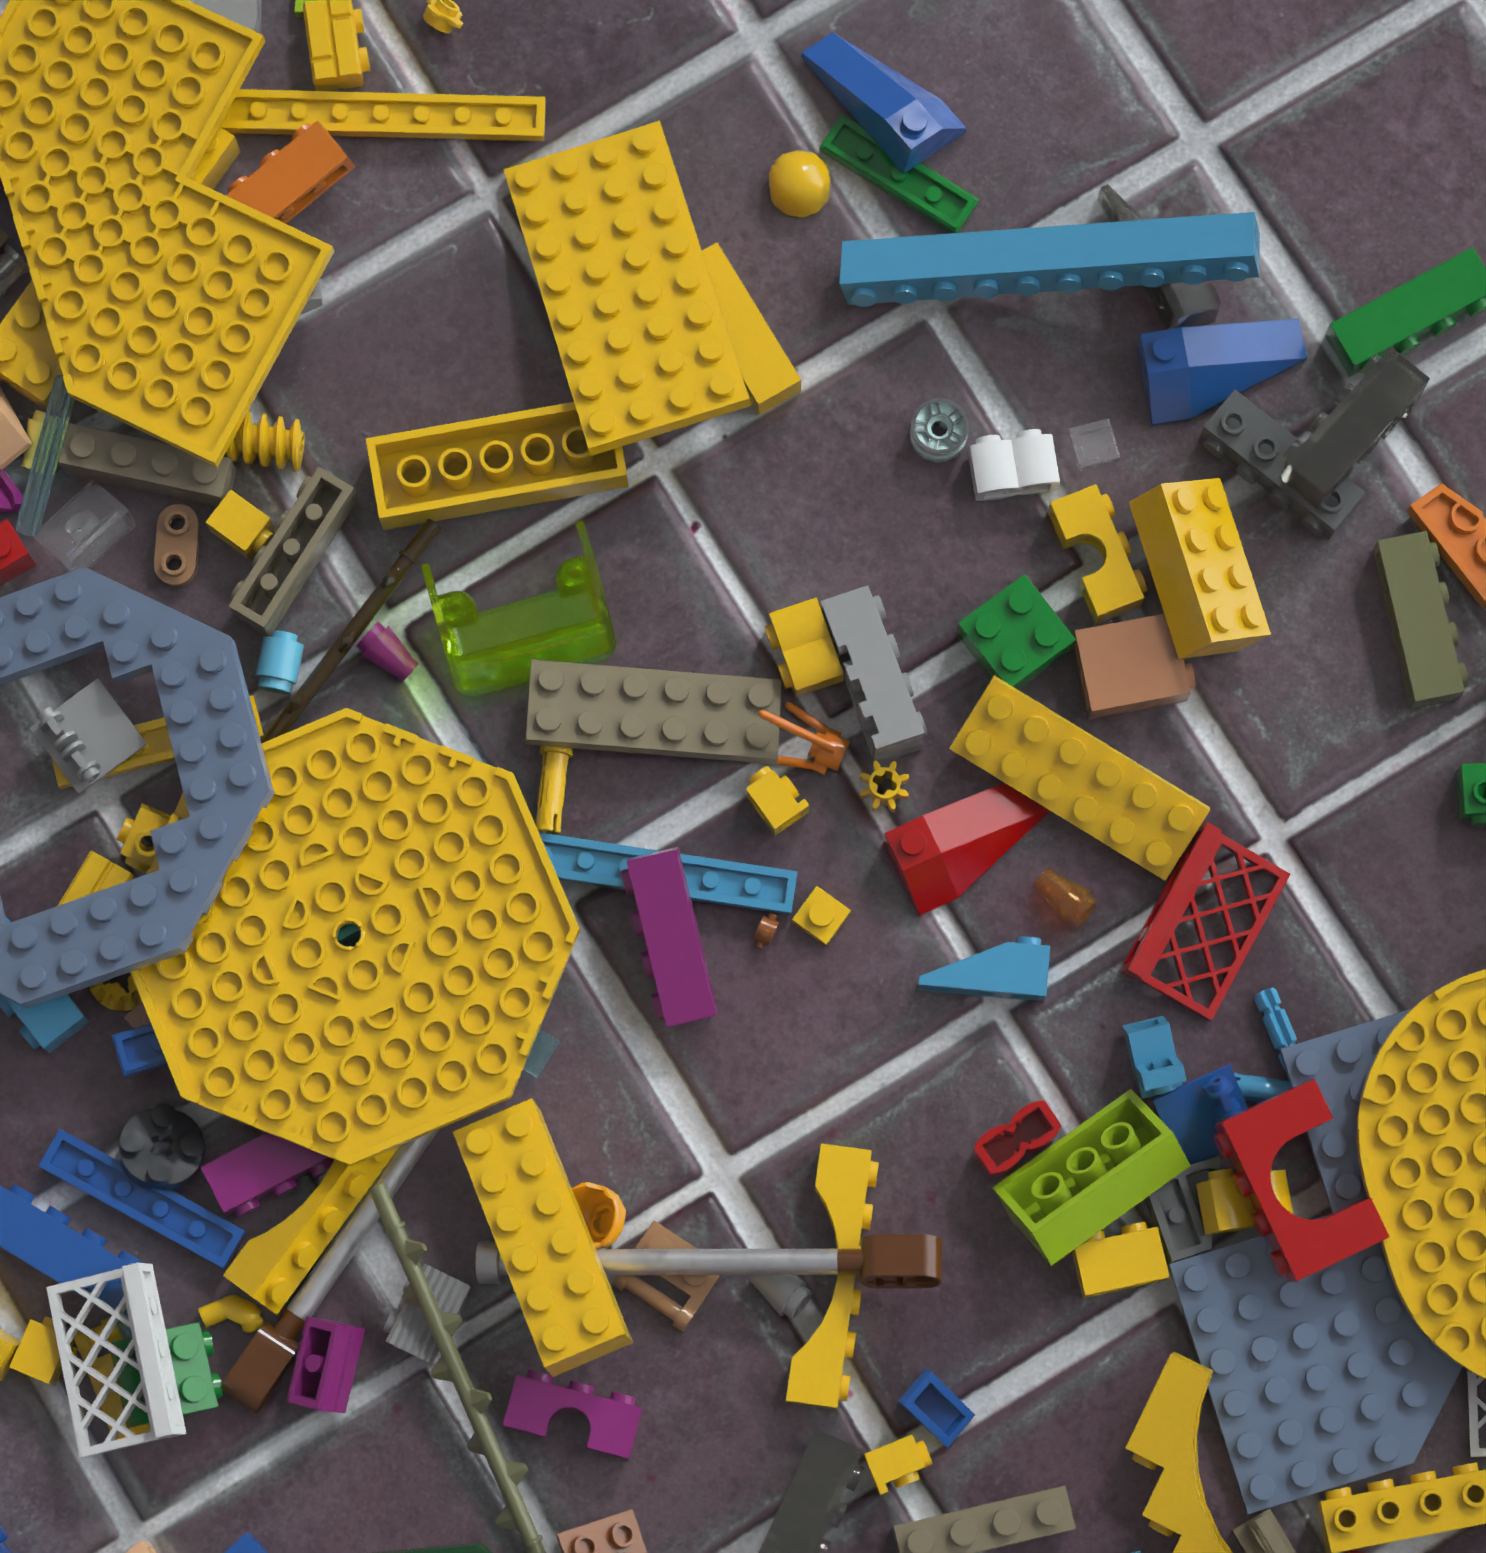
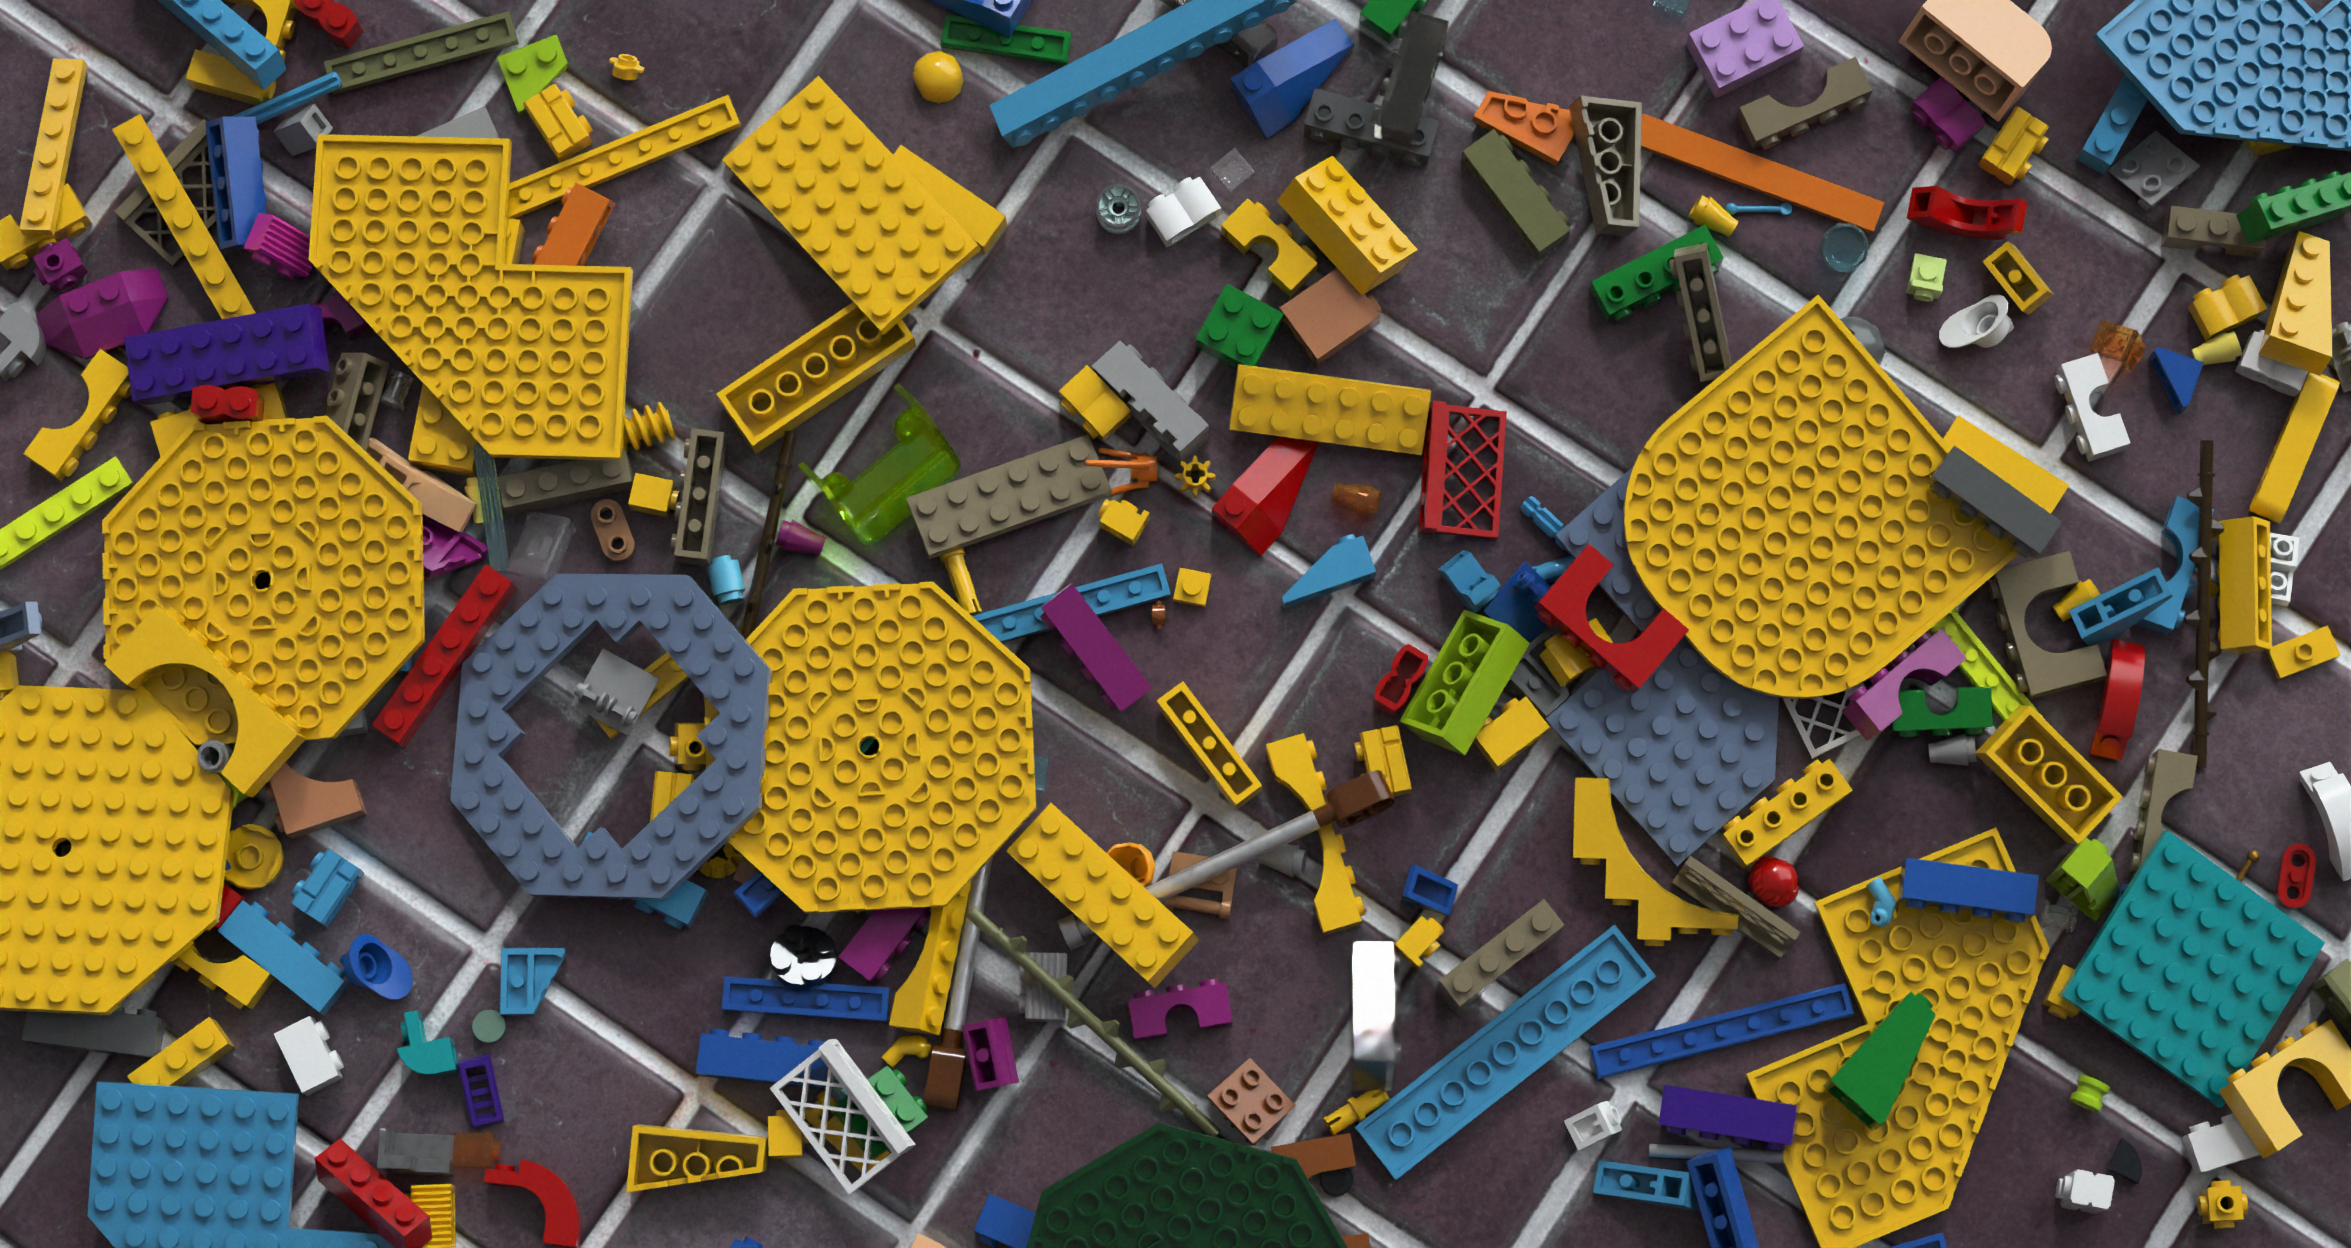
camera: 25 degrees left, 0 degrees up
(753, 1114) = (1209, 745): none -> yellow brick
(957, 1219) = (1384, 751): none -> yellow brick

